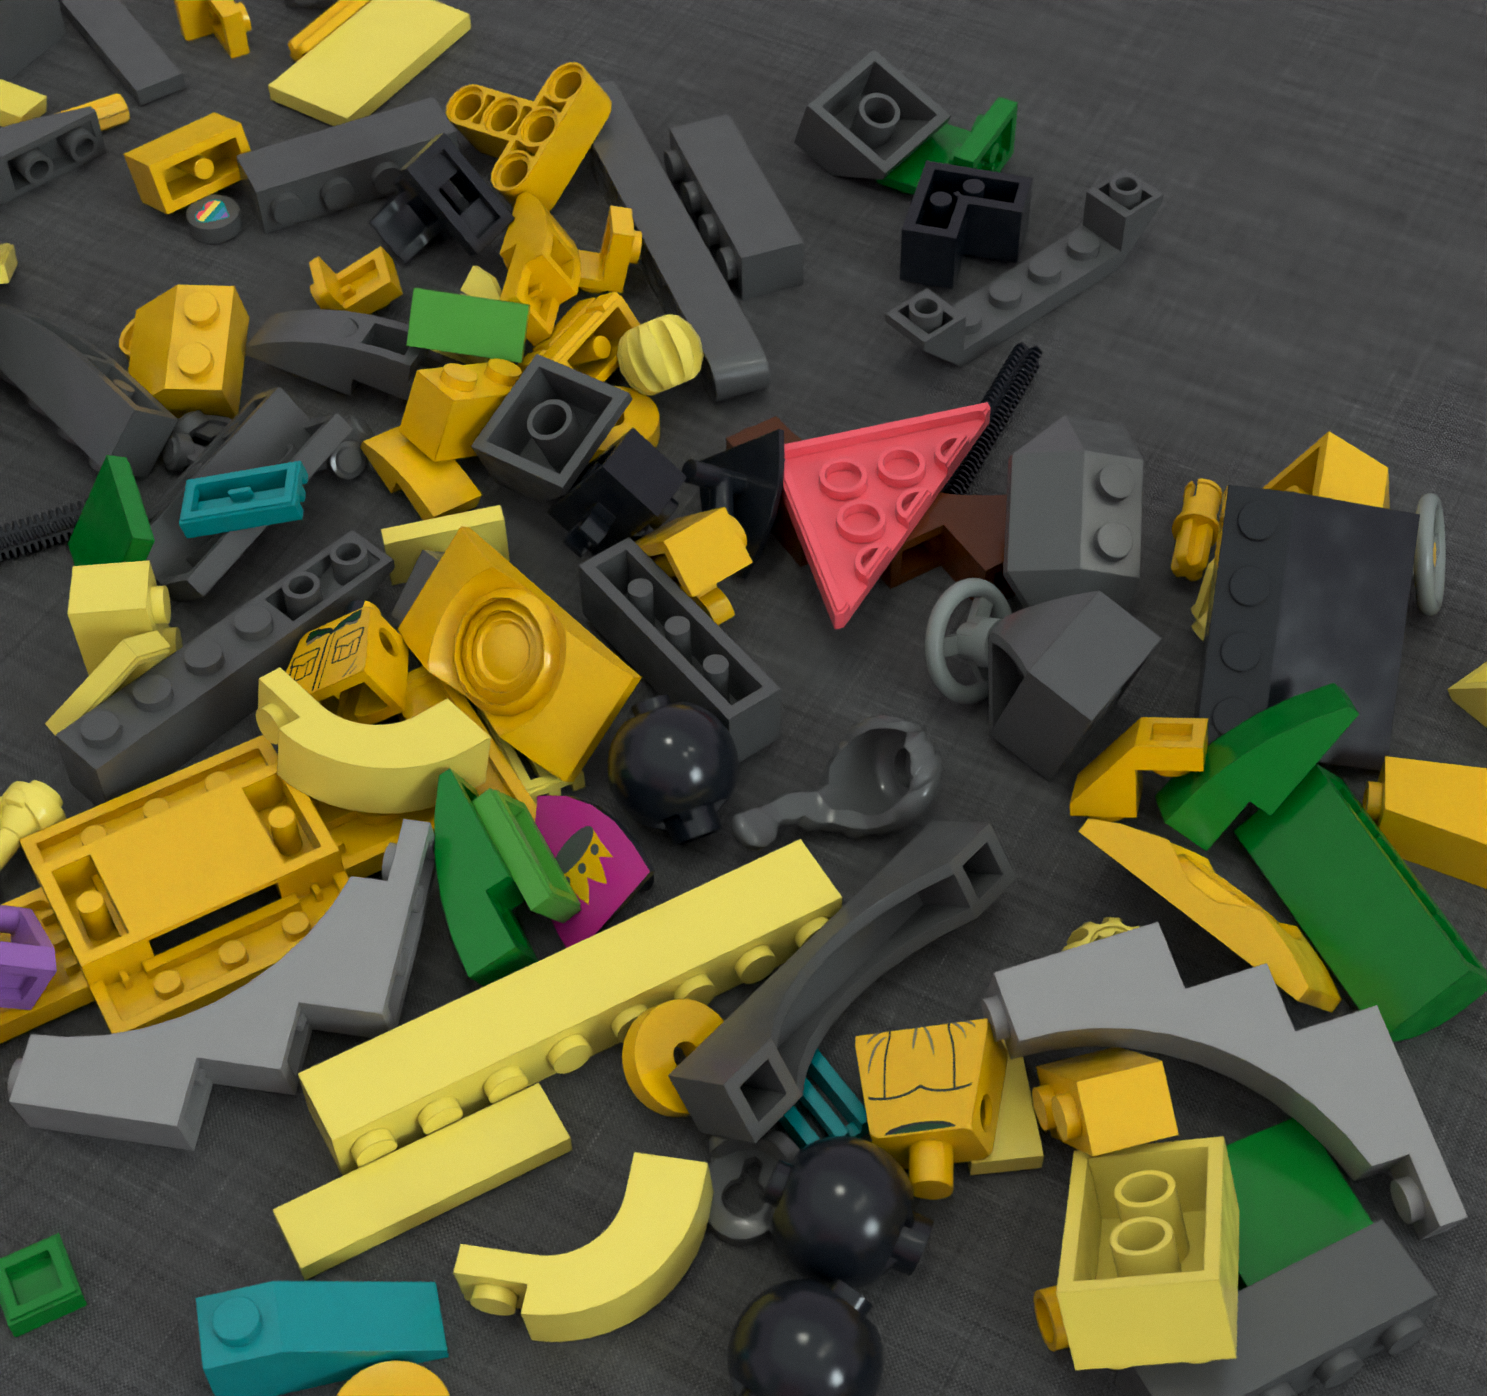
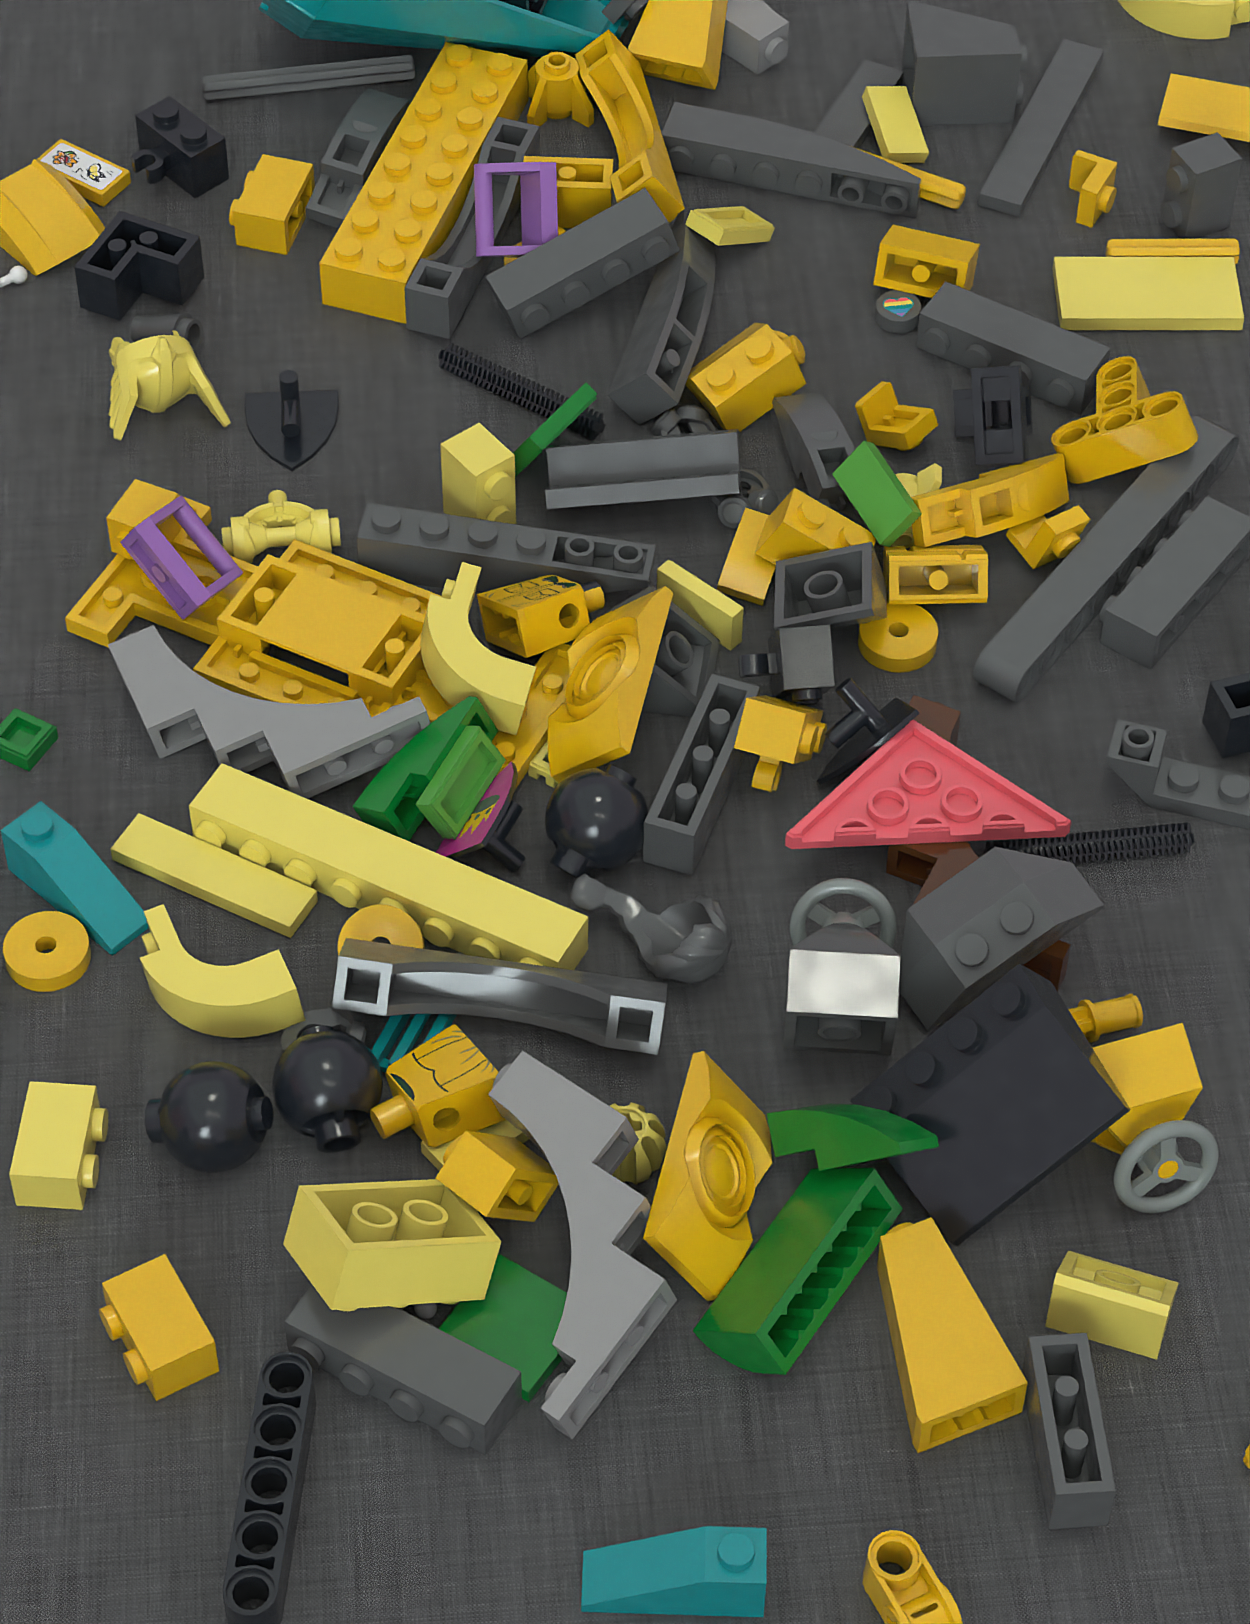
camera: 55 degrees right, 0 degrees up
(121, 667) = (434, 497): light yellow tile -> none
(243, 499) = (616, 476): teal tile -> none
(660, 354) = (964, 616): light yellow piece -> none
(1114, 780) = (806, 1077): yellow slope -> none

